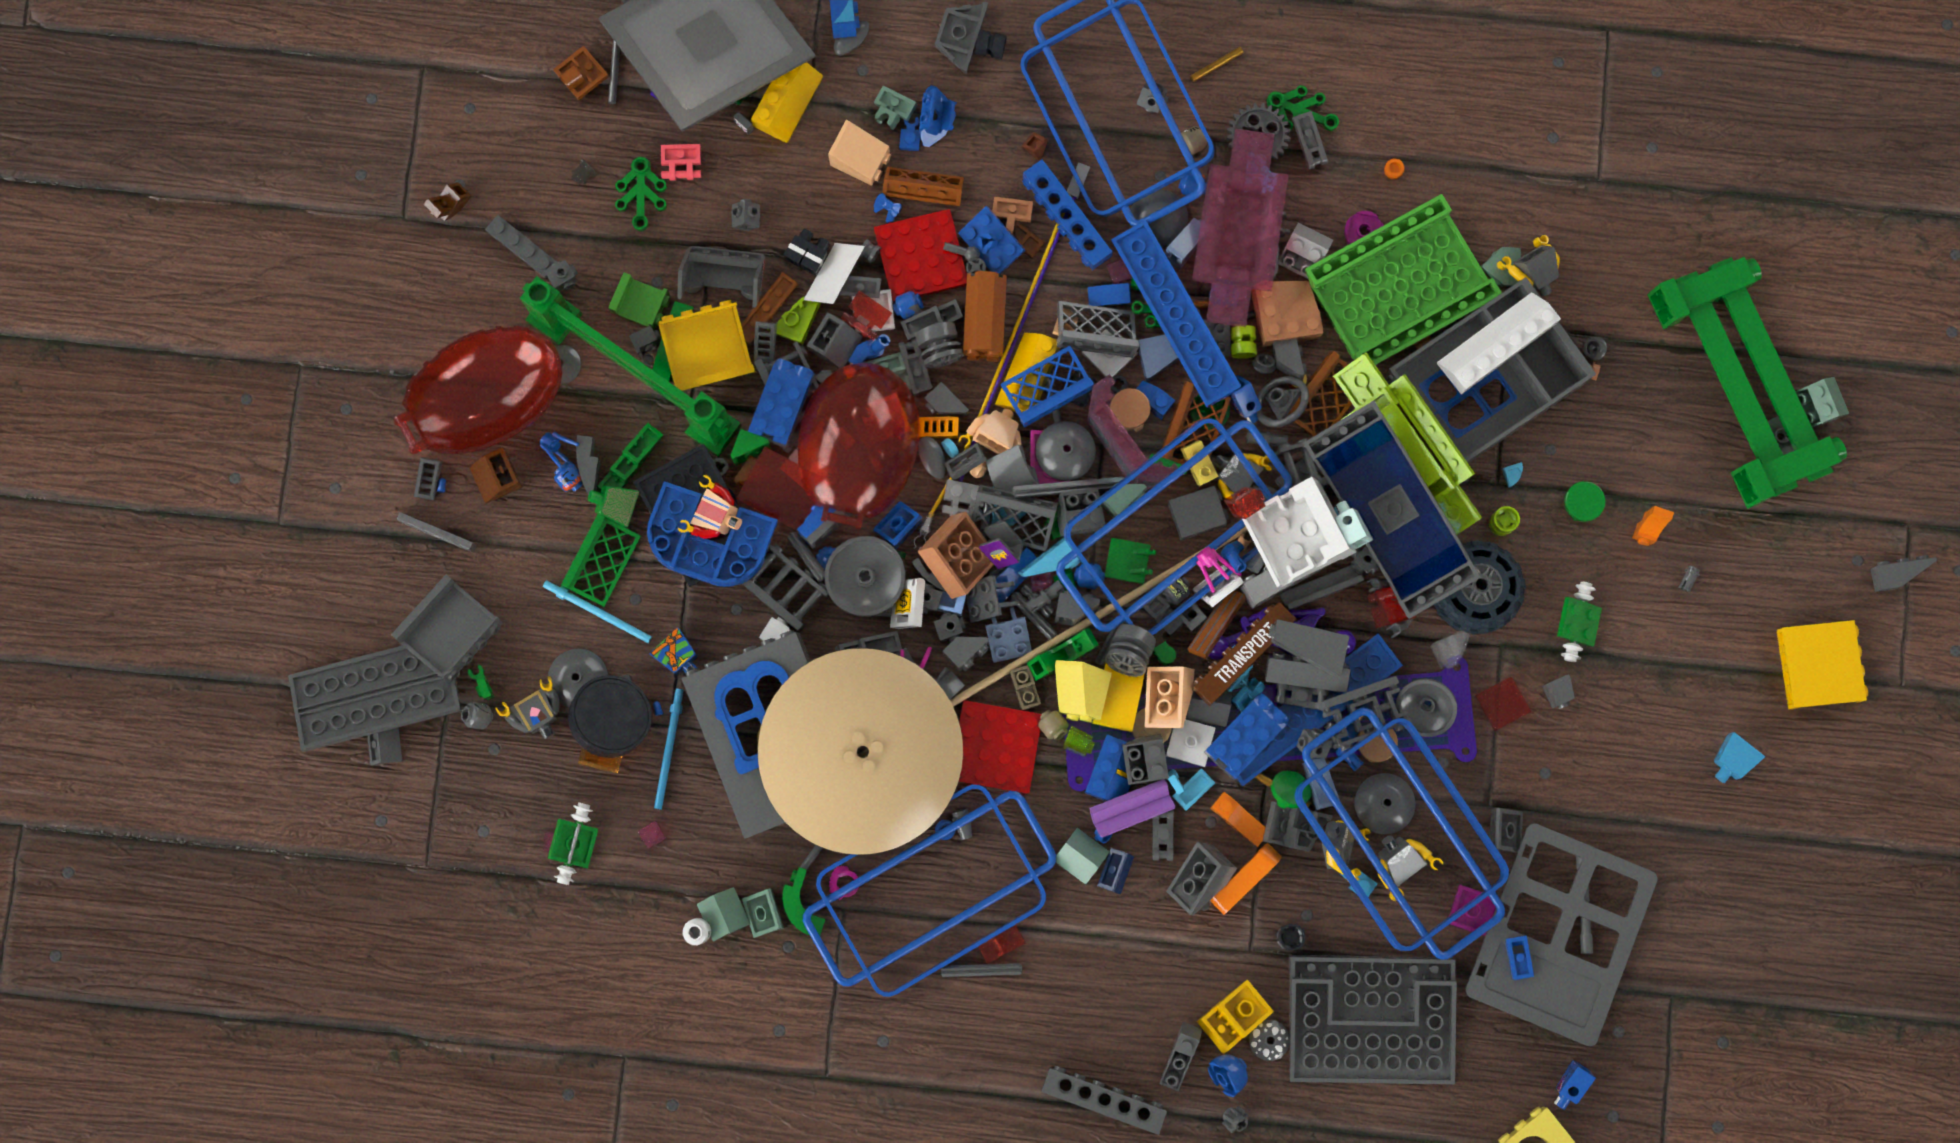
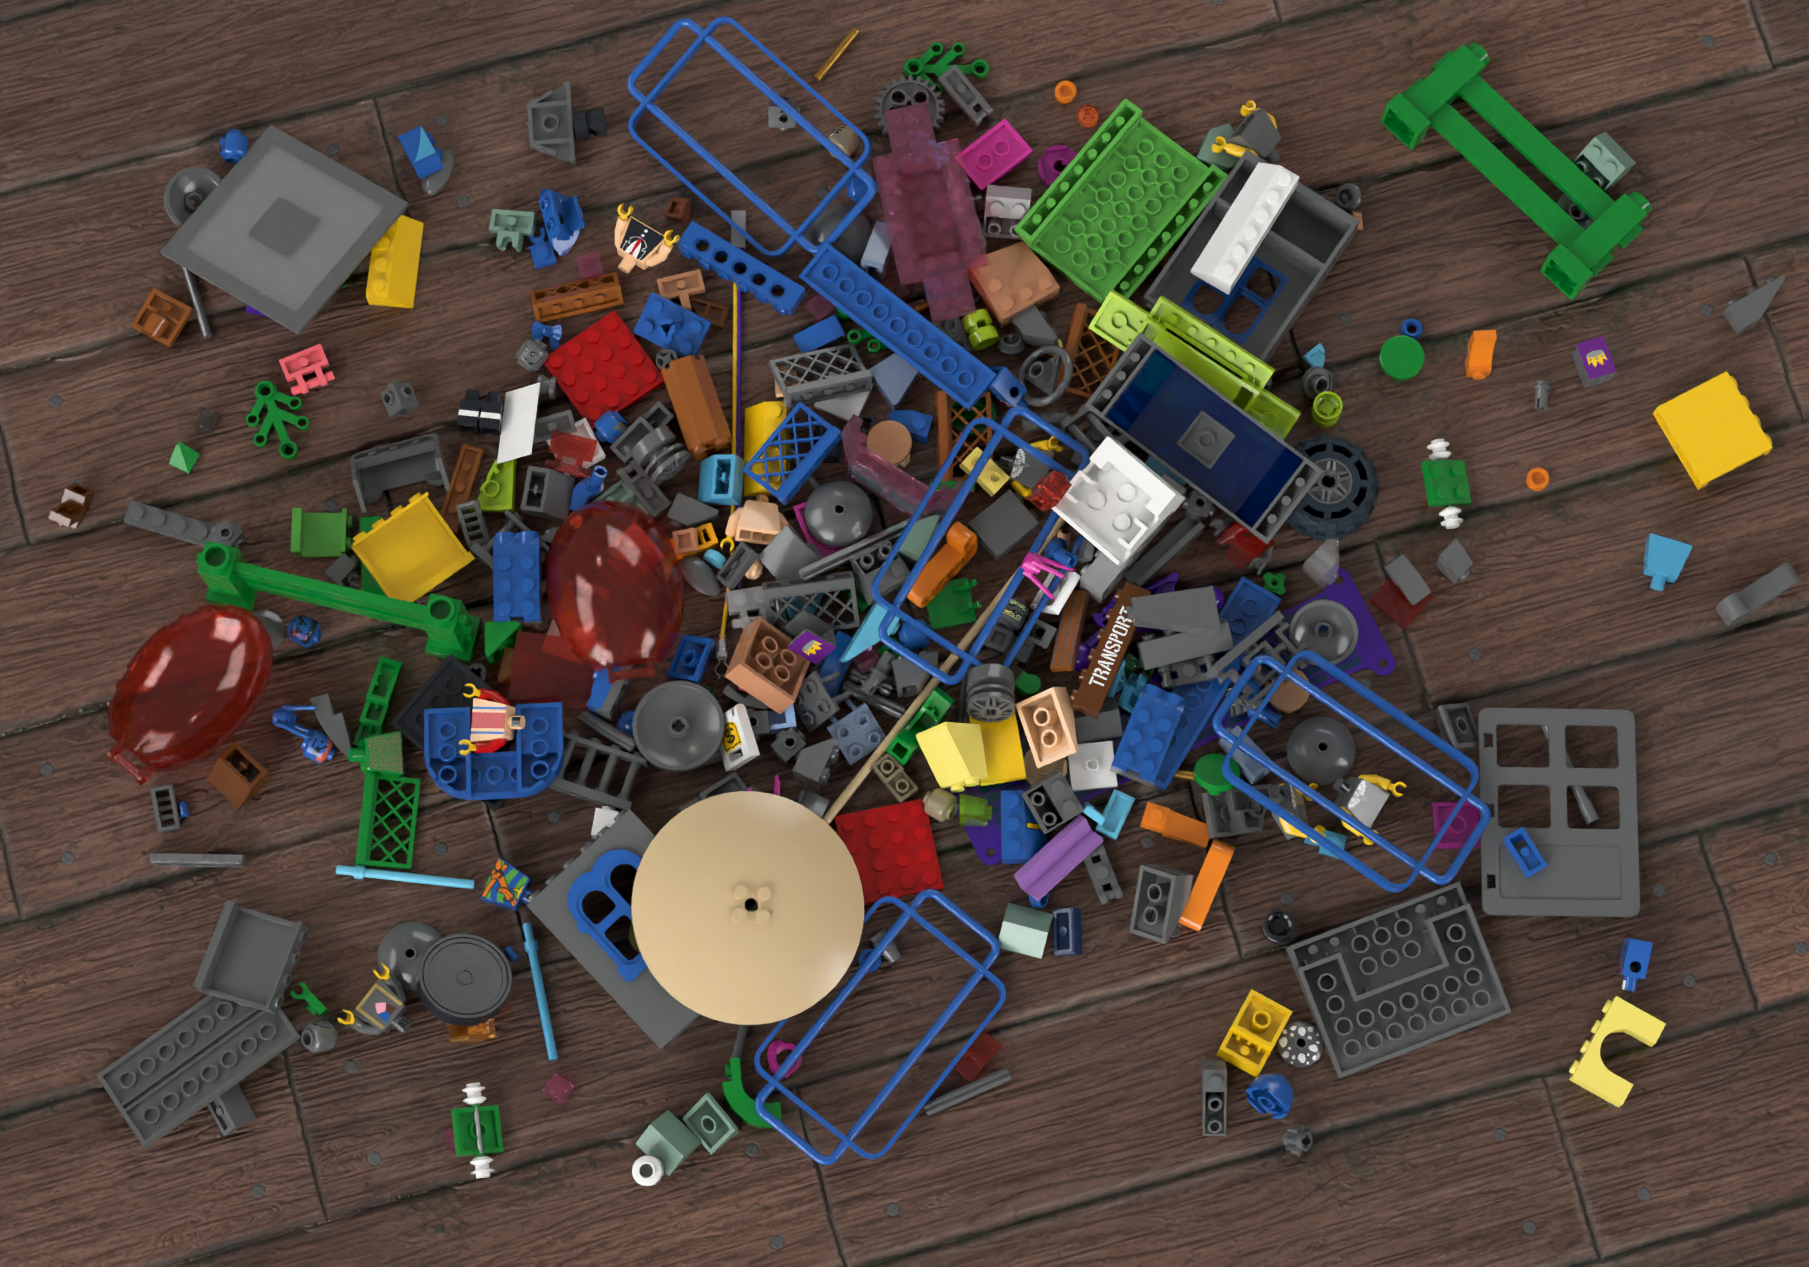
camera: 20 degrees left, 5 degrees down
(553, 196) = (183, 457): none -> green slope
(594, 377) = (304, 630): none -> blue head
(743, 123) = (358, 304): dark grey tile -> none
(859, 153) = (495, 289): light nougat slope -> none
(868, 220) = (532, 354): none -> dark grey head
(931, 424) = (686, 541): none -> nougat plate
(944, 163) = (589, 265): none -> clear pink plate
(970, 253) = (655, 348): dark grey bar -> none
(980, 385) = (721, 480): none -> dark azure slope
(992, 160) = (640, 243): none -> torso
(1152, 519) = (952, 557): none -> orange beam
(1152, 1123) = (1093, 1185): dark grey brick -> none
(1259, 669) = (1133, 663): none -> dark green piece
(1310, 734) = (1230, 720): dark grey brick -> none
(1314, 199) = (994, 155): none -> dark pink plate
(1356, 533) = (1175, 476): light aqua torso -> none
(1404, 196) = (1088, 116): none -> clear red tile
(1404, 655) = (1279, 579): none -> green plate
(1505, 494) = (1316, 381): none -> dark grey plate
(1514, 690) = (1408, 579): none -> dark grey slope
(1608, 480) = (1412, 323): none -> blue plate
(1657, 647) = (1537, 479): none -> orange tile
(1745, 568) = (1594, 362): none -> piece
(1803, 818) = (1756, 595): none -> dark grey beam

